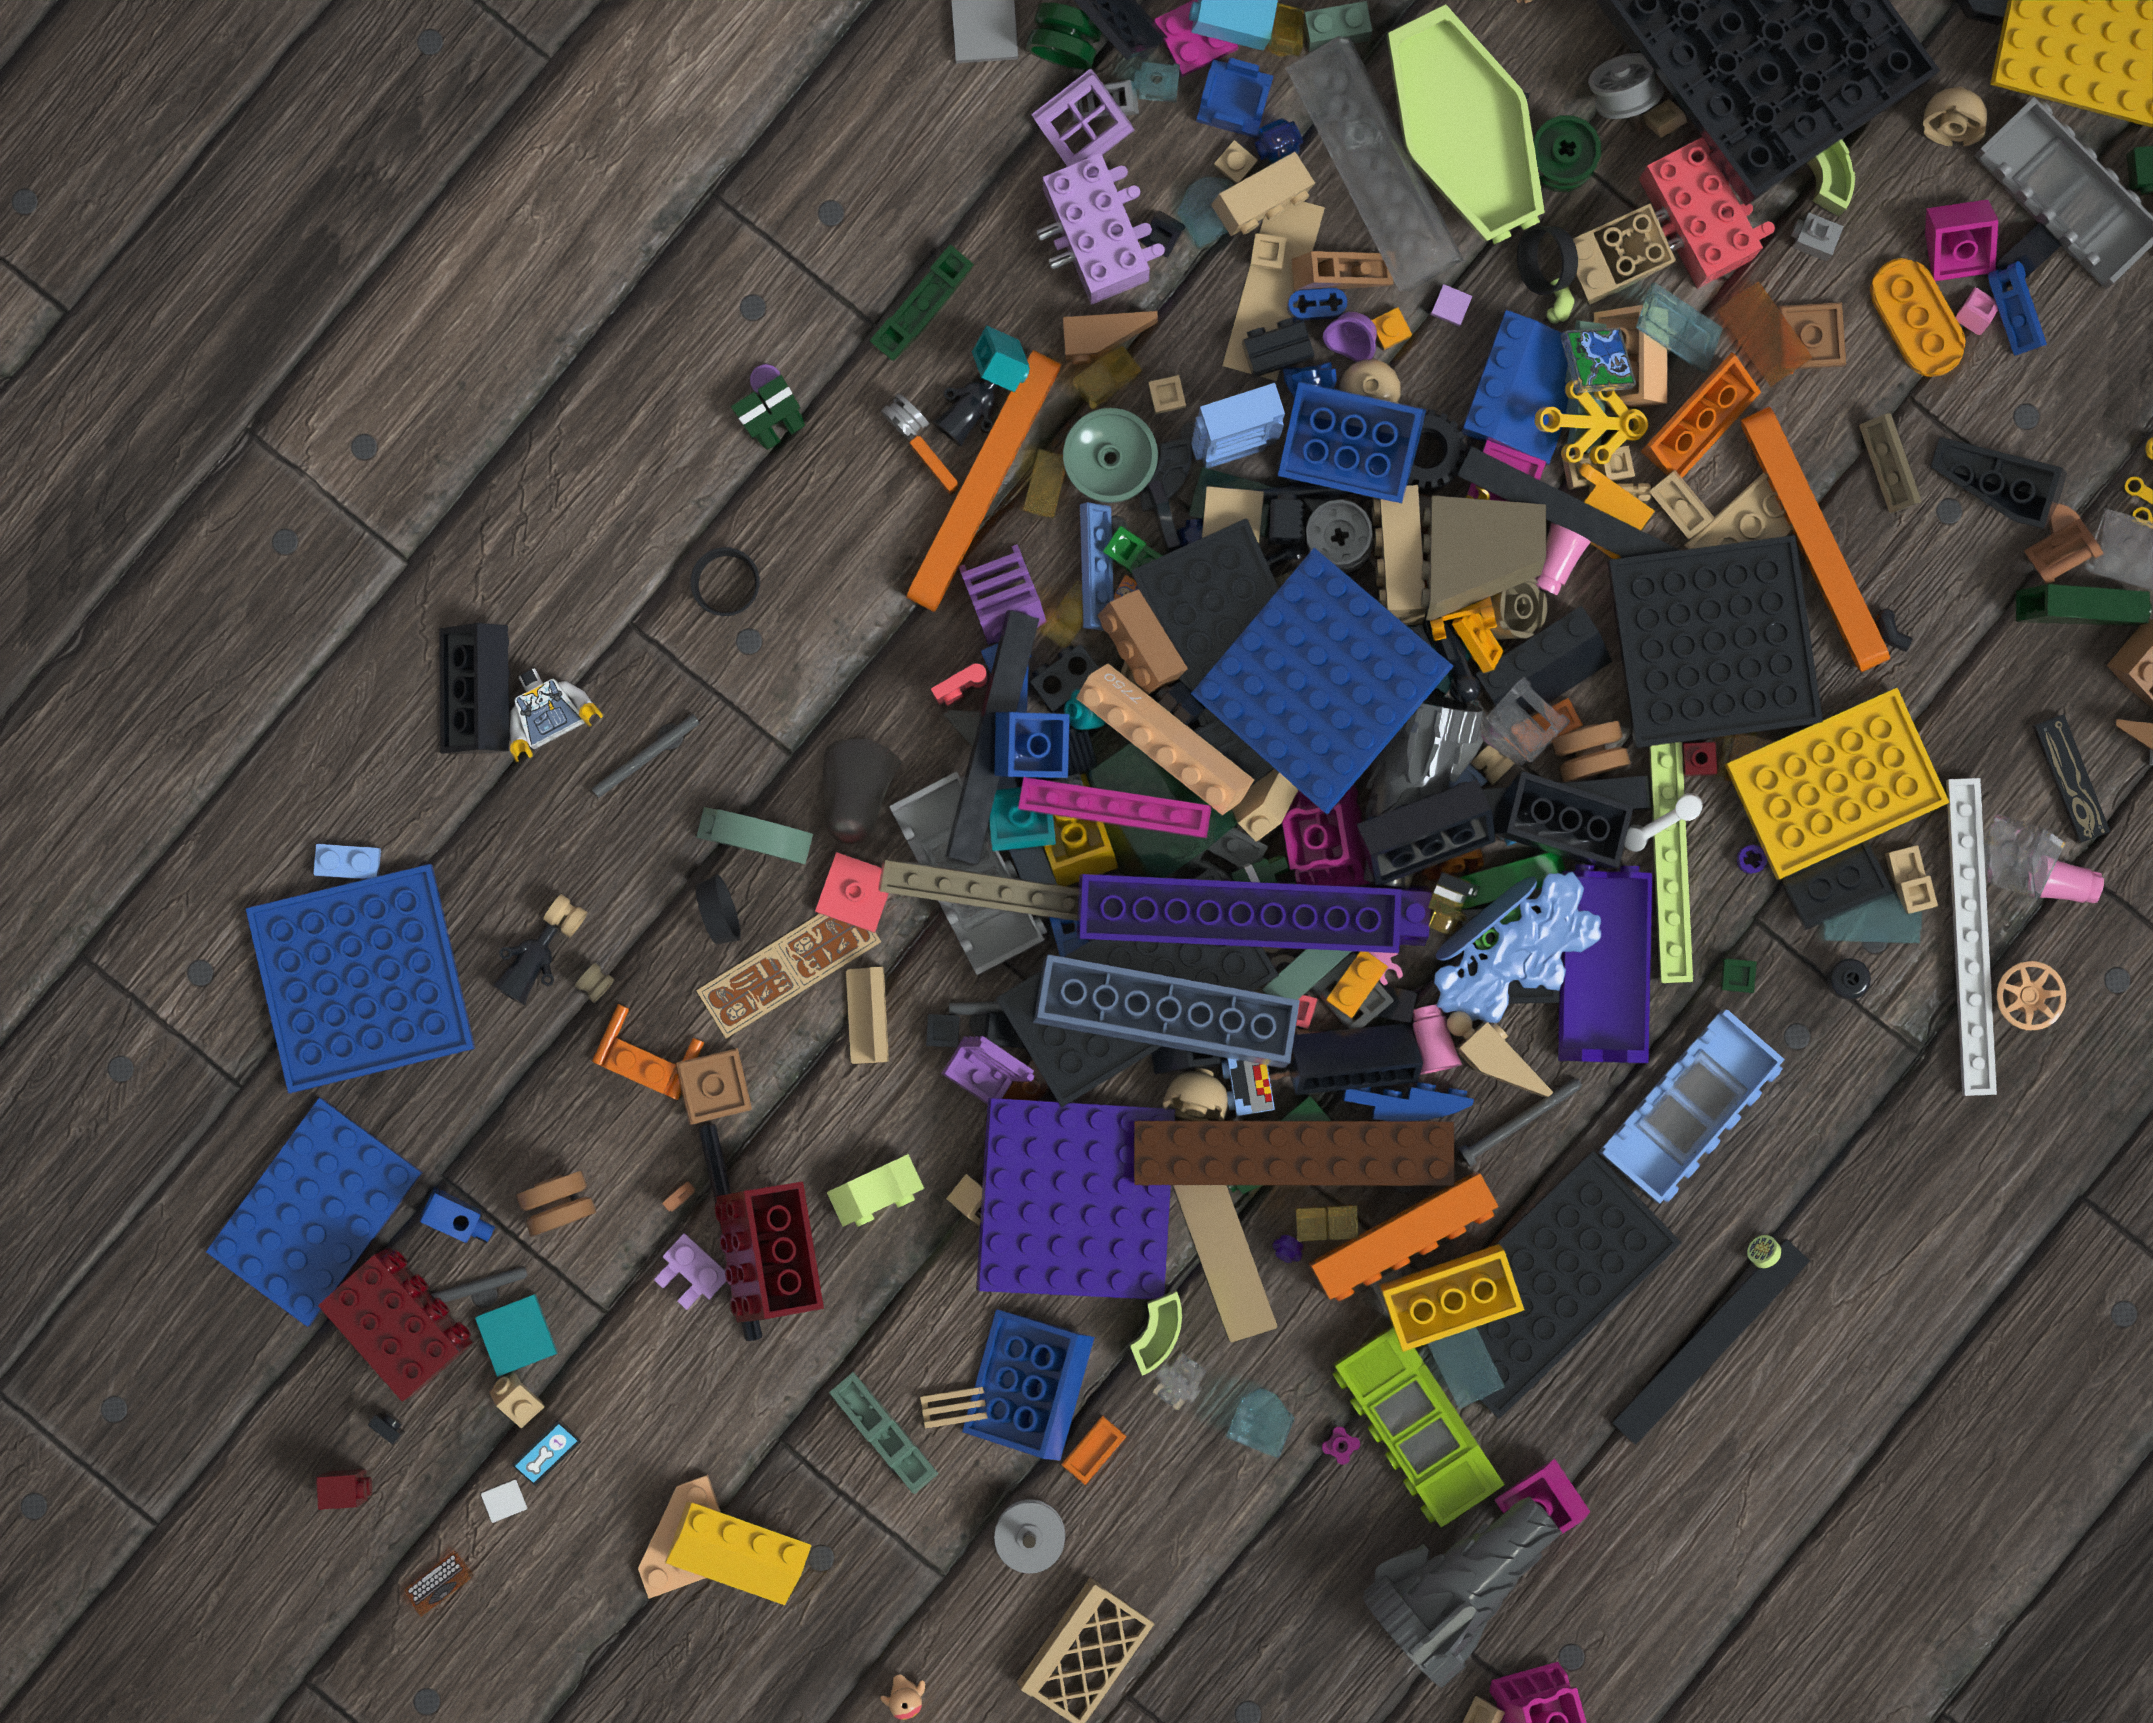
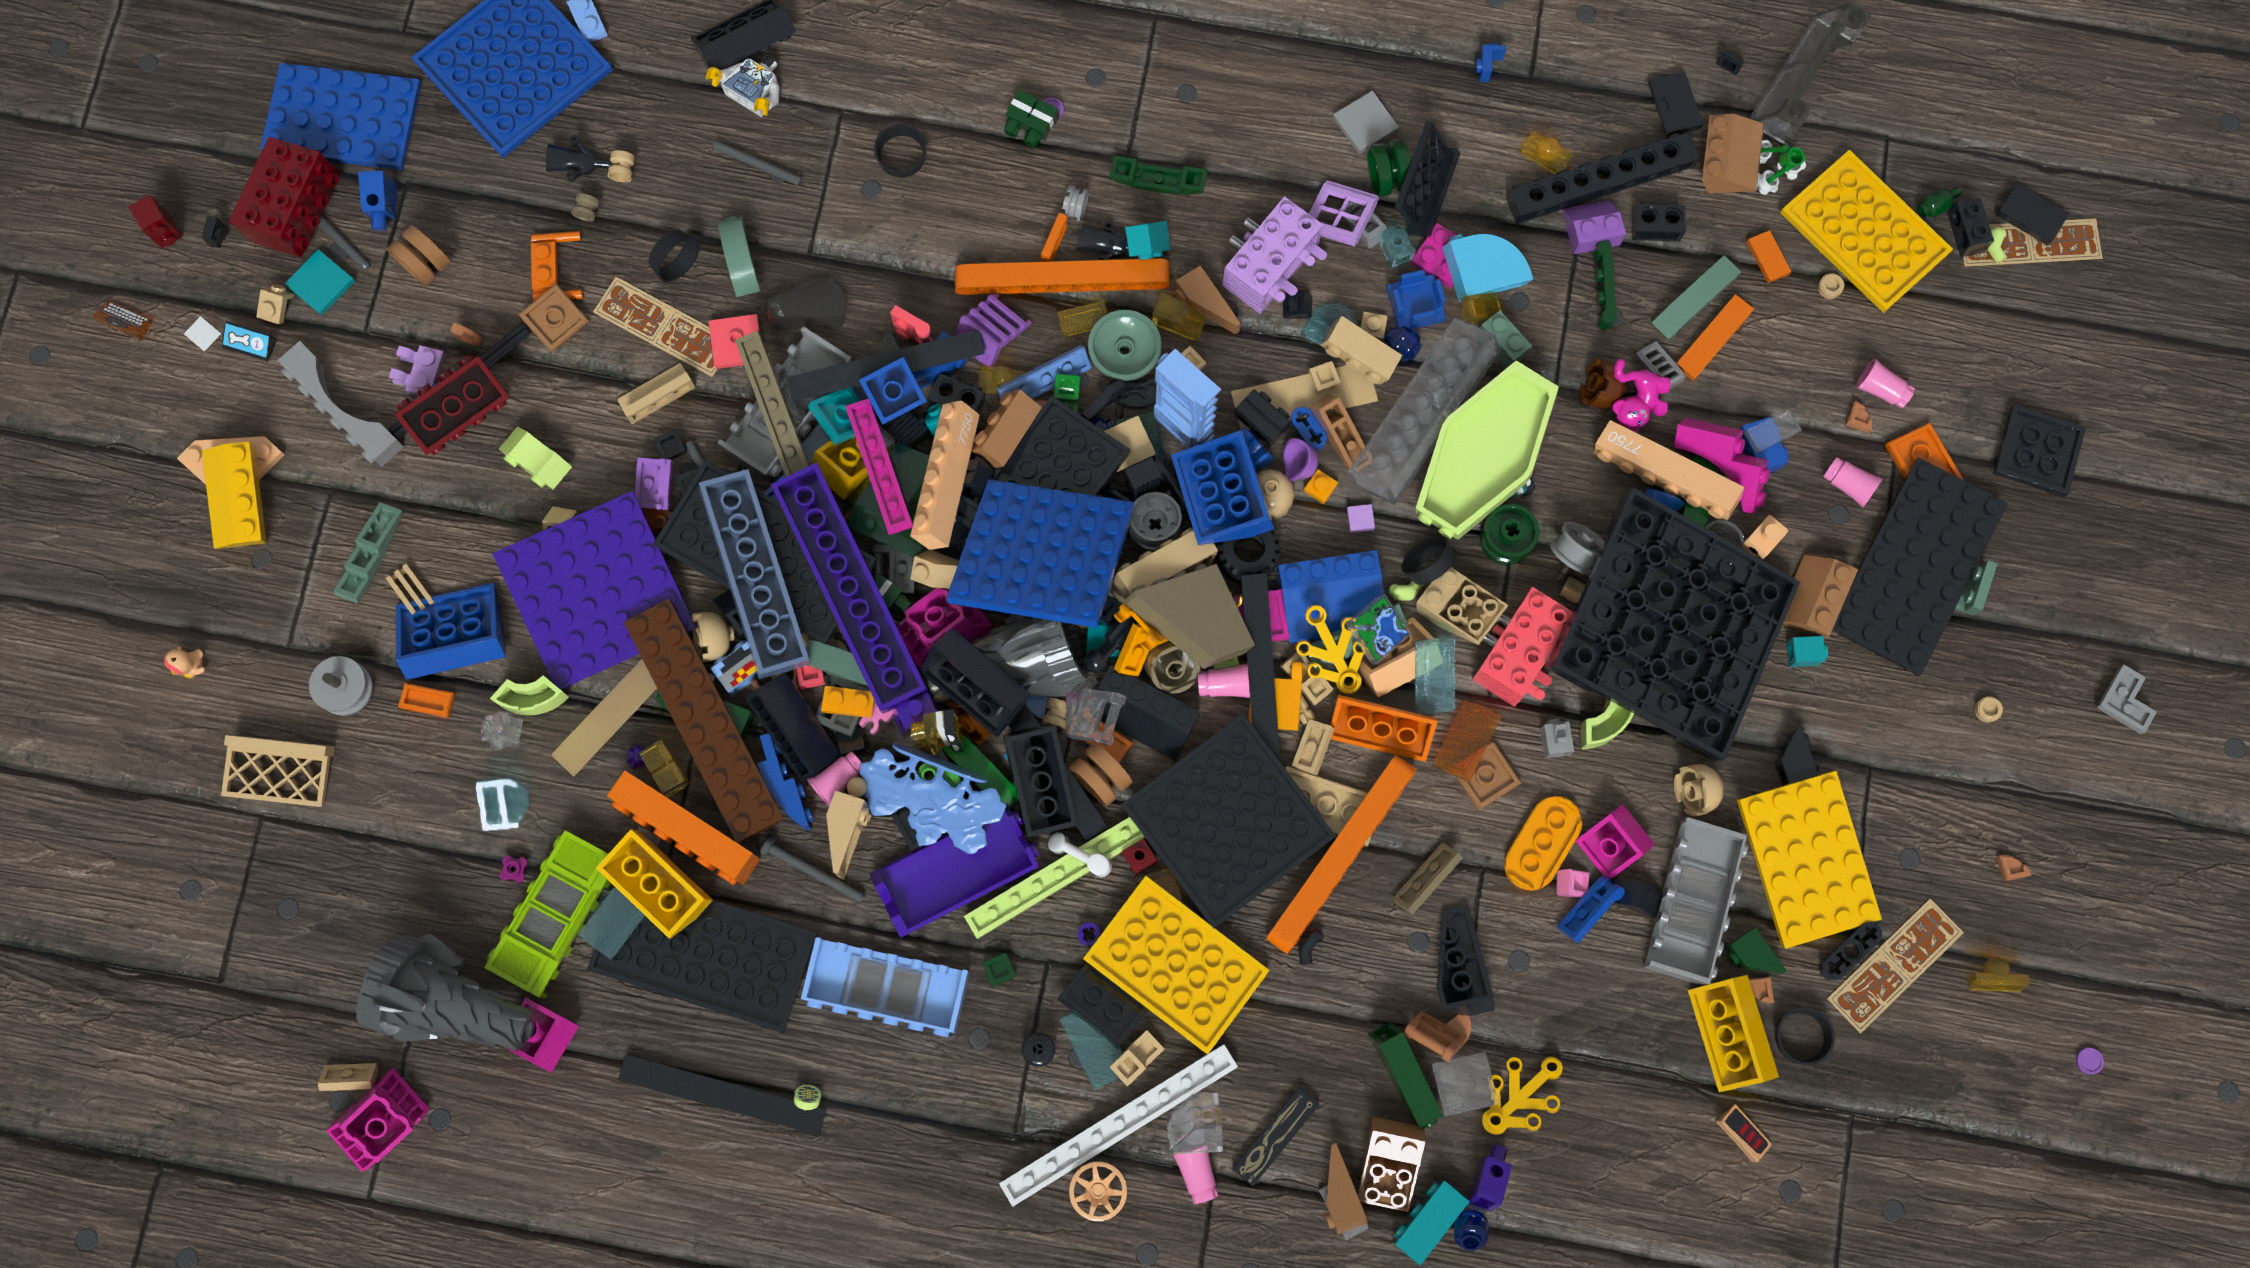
camera: 60 degrees right, 10 degrees down
(623, 1400) = (373, 437): none -> light grey arch

